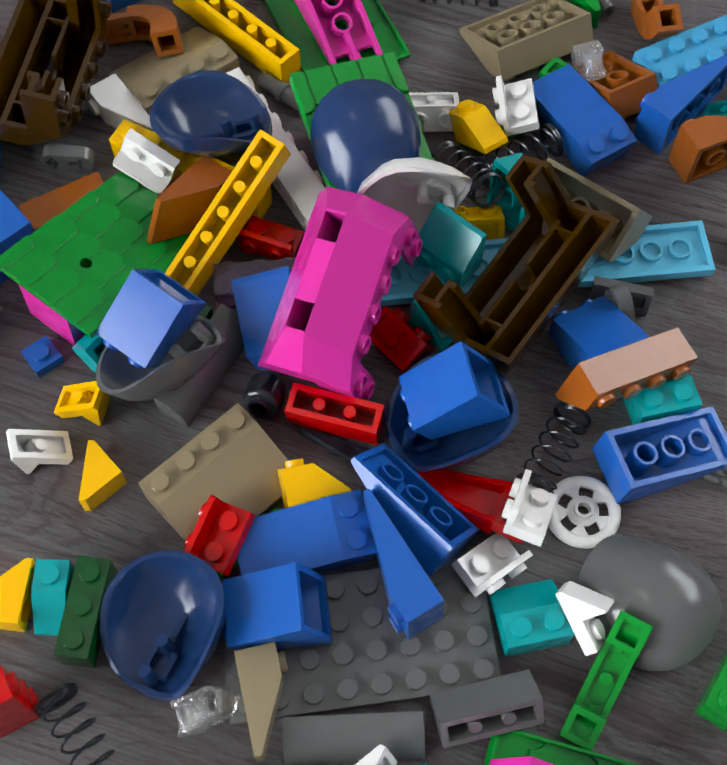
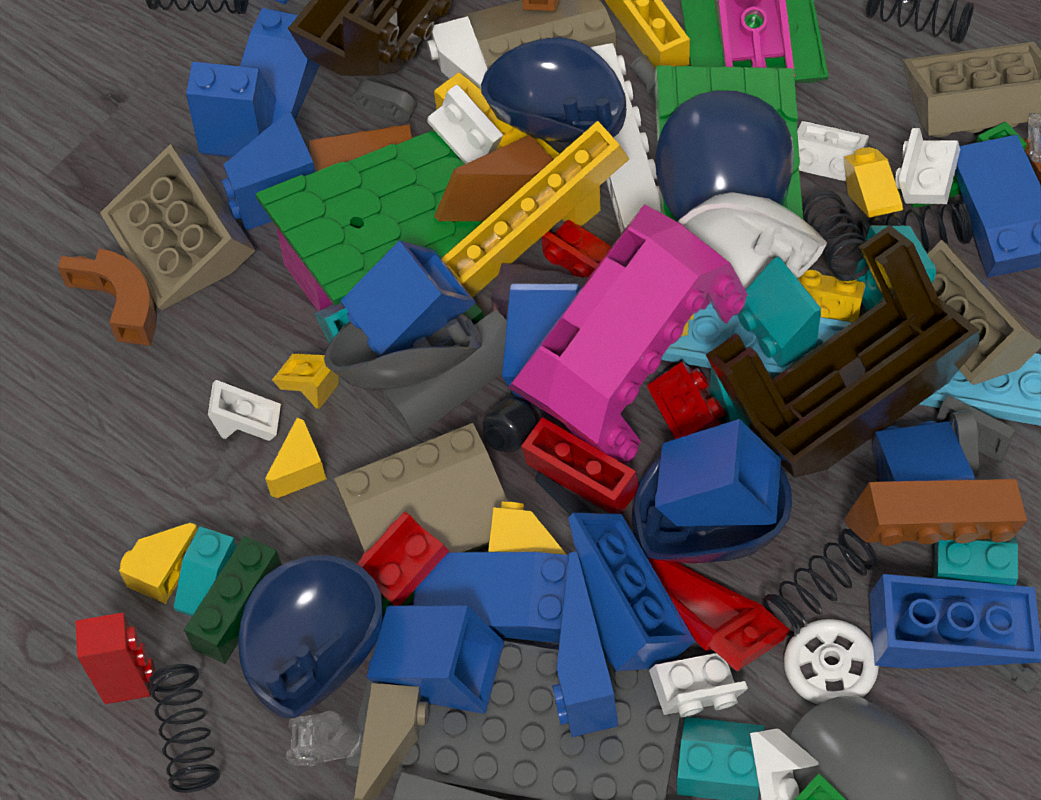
camera: 25 degrees right, 5 degrees down
(42, 356) = (281, 315): blue plate -> none
(529, 511) = (757, 635): white bracket -> none

